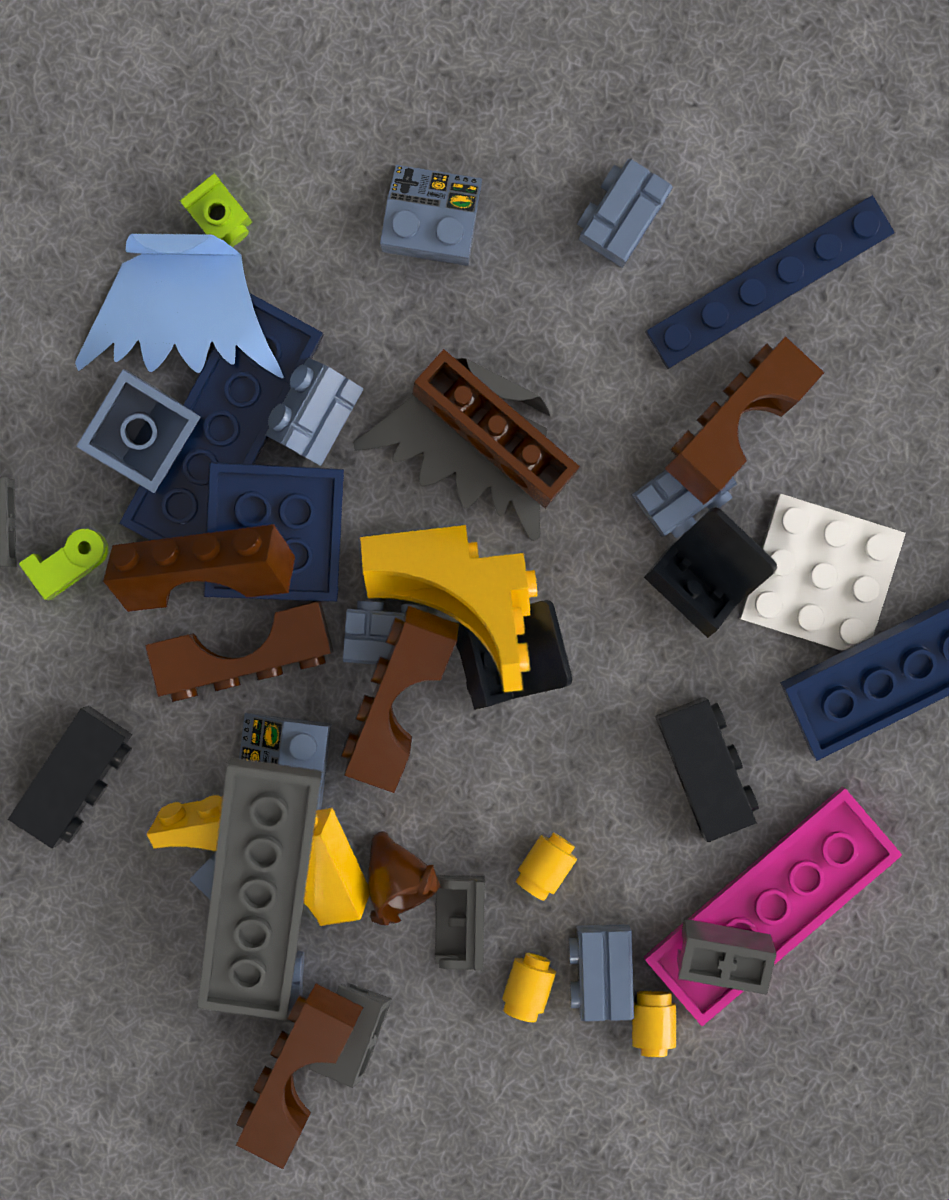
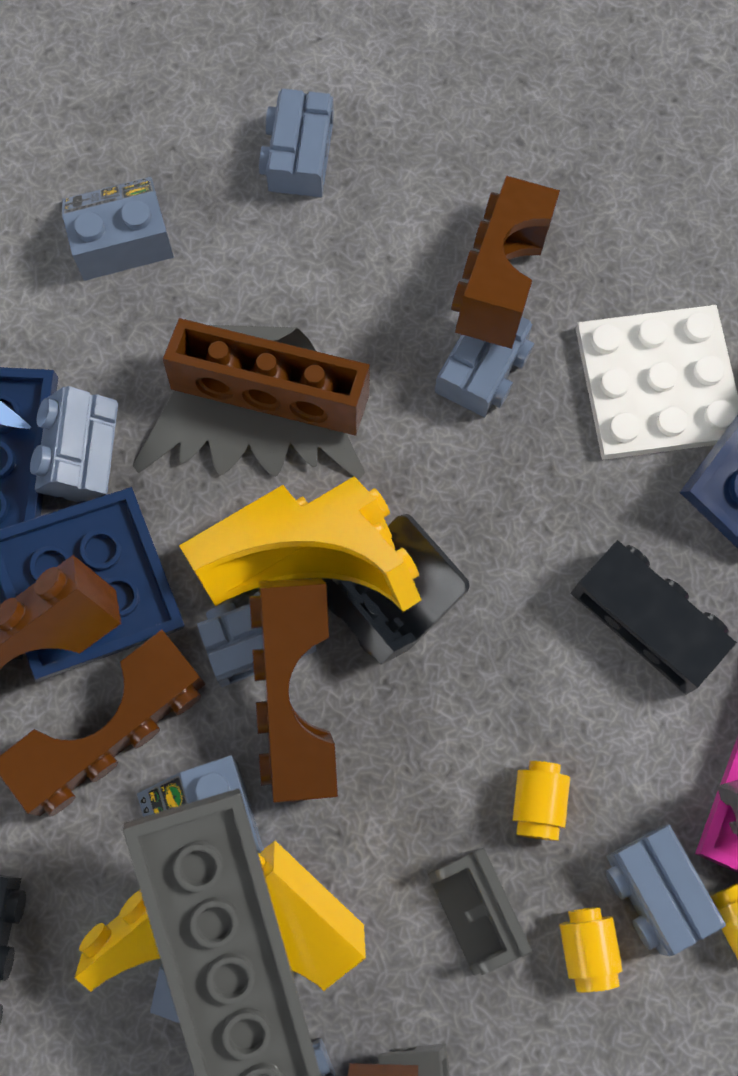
camera: 25 degrees left, 15 degrees down
(397, 880) = (376, 894): reddish brown hat -> none
(710, 570) = (552, 413): black bracket -> none
(770, 282) = (463, 152): dark blue plate -> none

